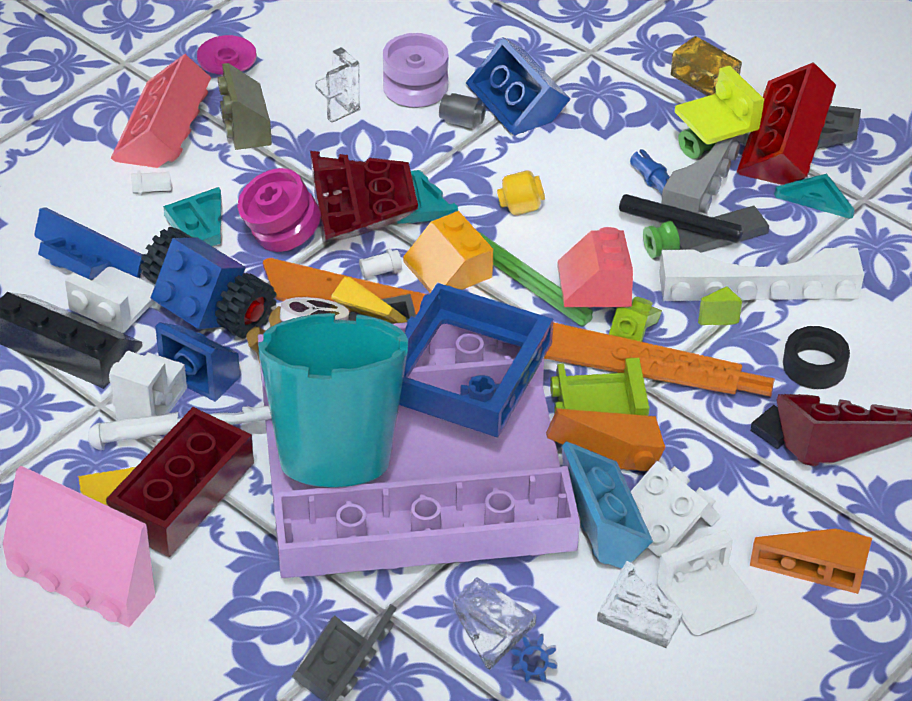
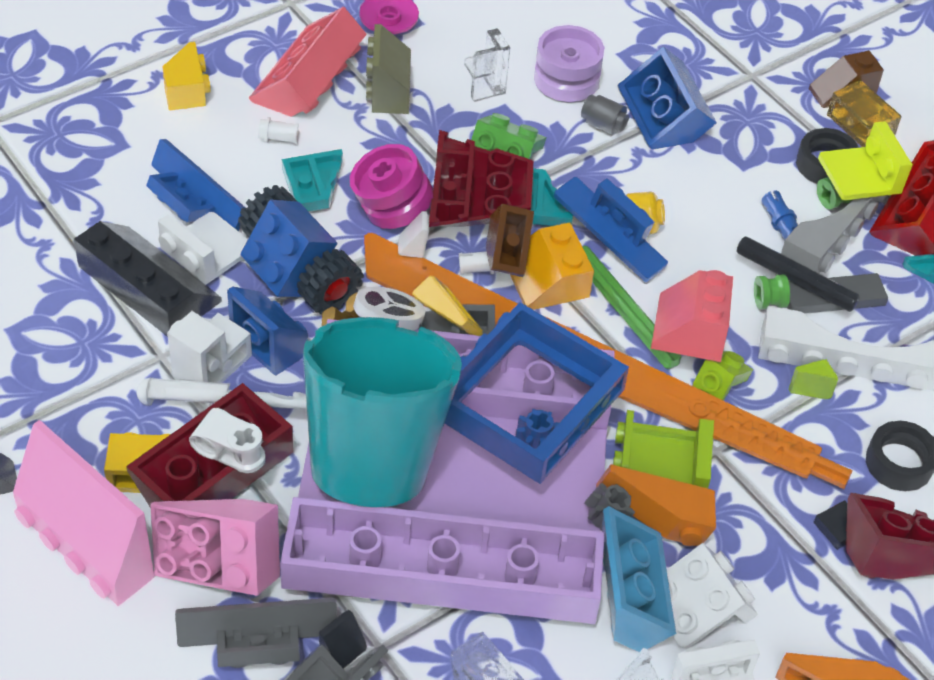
camera: 10 degrees right, 5 degrees up
(44, 151) = (184, 80): none -> yellow slope
(195, 454) = (229, 441): none -> white piece
(211, 549) = (217, 543): none -> bright pink slope
(268, 617) = (254, 630): none -> dark grey bracket
(313, 252) = (414, 237): none -> white slope
(351, 607) = (343, 639): none -> black slope
(362, 145) = (498, 132): none -> bright green bracket
(406, 234) = (509, 239): none -> reddish brown slope
(499, 203) = (615, 223): none -> blue bracket
(555, 440) = (603, 497): none -> dark grey gear
(668, 98) = (820, 140): none -> black tyre
(678, 32) = (844, 72): none -> slope

